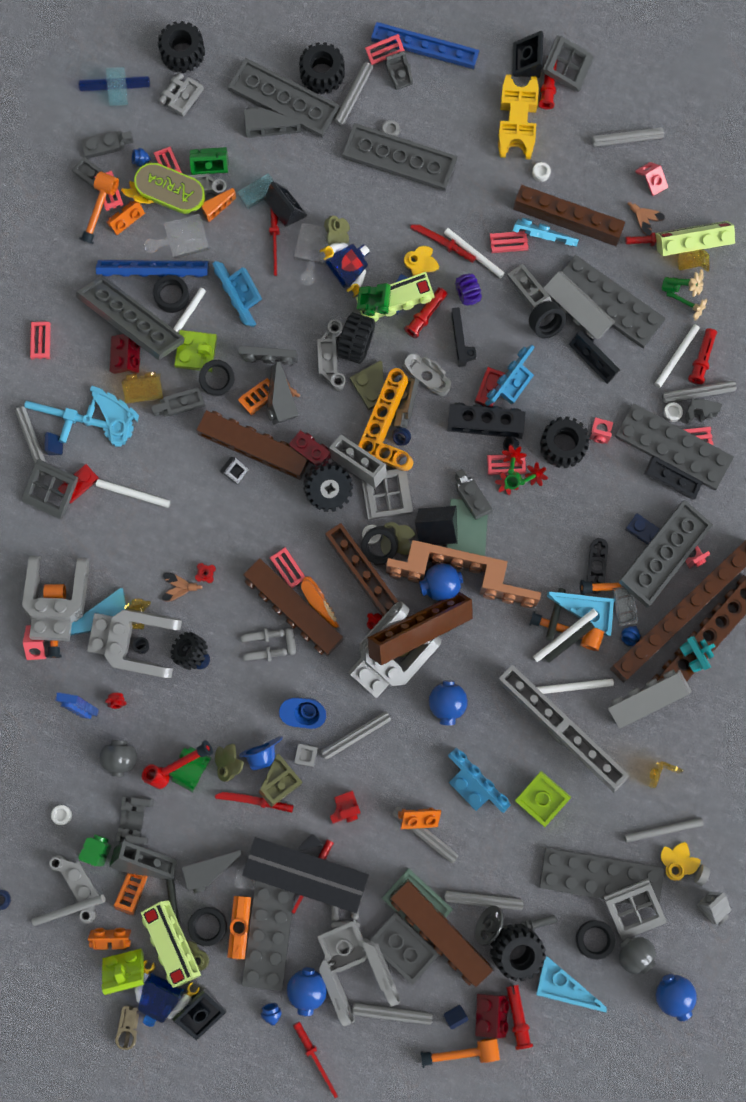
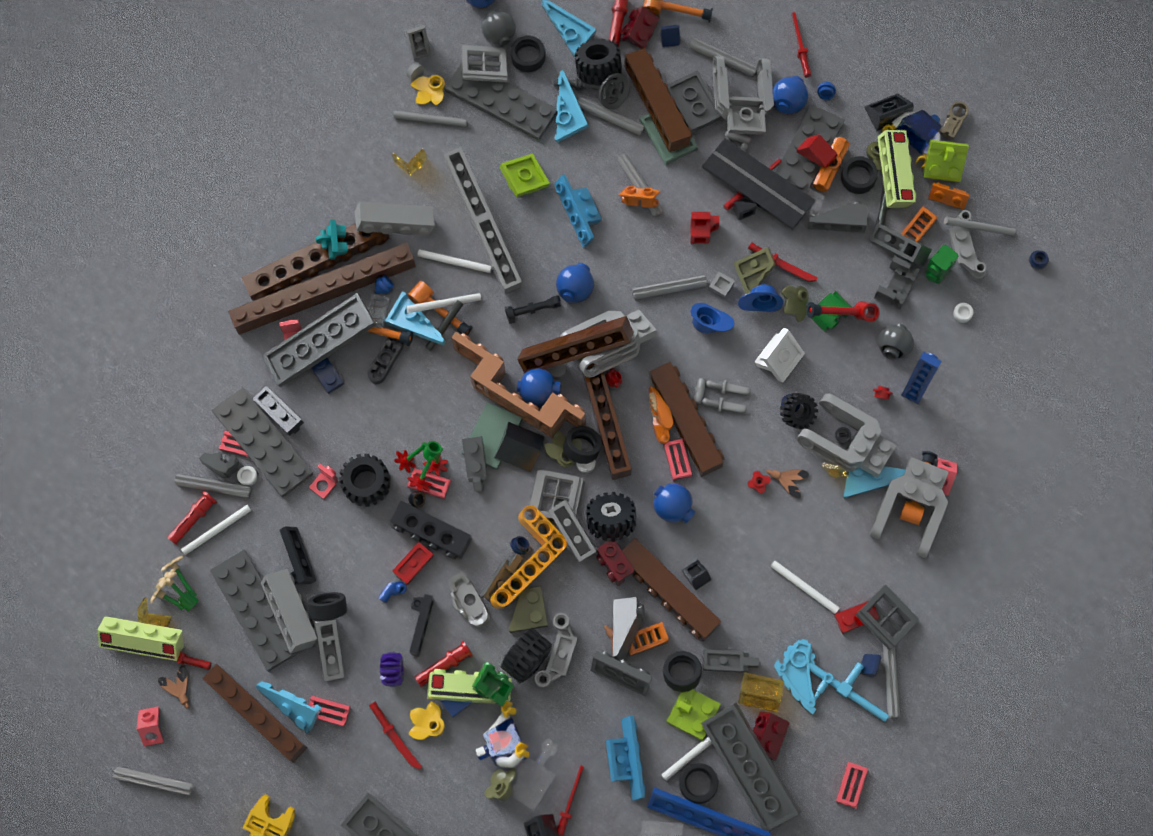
camera: 155 degrees left, 5 degrees down
(225, 701) = (780, 355): none -> white bracket
(257, 930) = (817, 150): none -> red slope
(275, 520) = (673, 503): none -> blue brick
(479, 257) = (368, 712): white bar -> none
(497, 651) = (553, 302): none -> black piece
(498, 360) = (392, 588): none -> blue arm
(514, 381) = (386, 559): dark azure bracket -> none
(524, 884) = (570, 115): none -> medium azure wing
(541, 171) = (260, 777): white tile -> none
(570, 641) = (423, 299): pearl dark grey bar -> none

